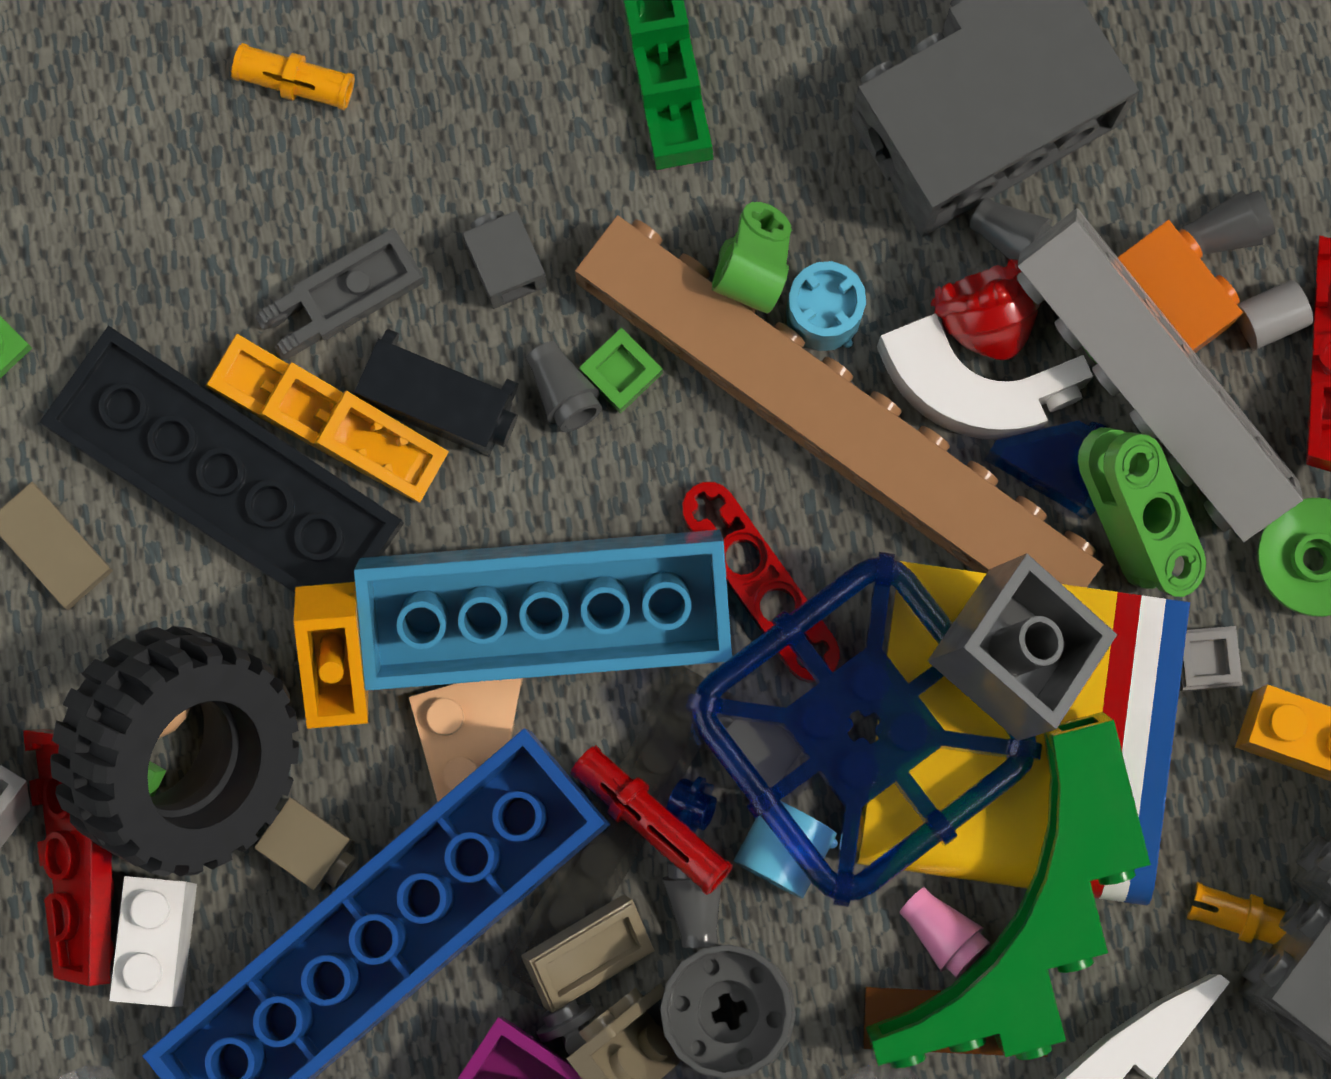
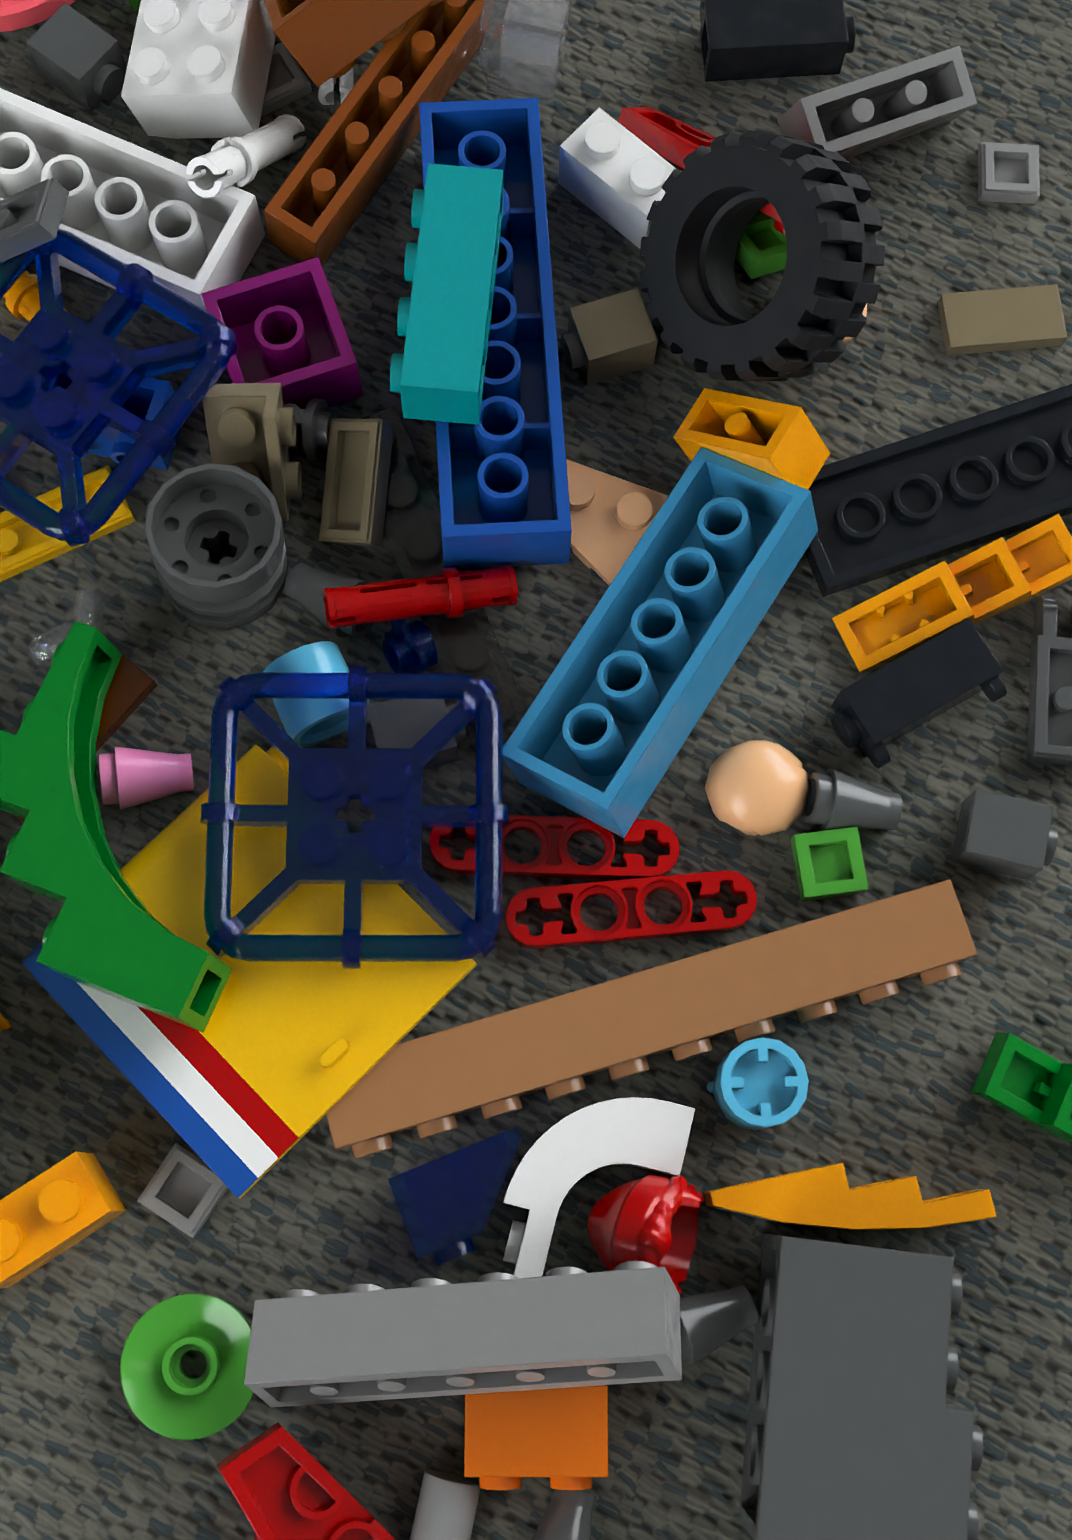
camera: 125 degrees right, 5 degrees down
(393, 970) = (450, 294): none -> teal brick
(599, 465) = (757, 787): none -> light nougat hair
(754, 262) = (851, 1048): bright green piece -> none
(770, 486) = (629, 900): none -> red beam
(871, 208) = (825, 1200): none -> light orange slope
(1023, 648) = (307, 991): dark grey brick -> none
(1141, 510) = (355, 1222): bright green piece -> none

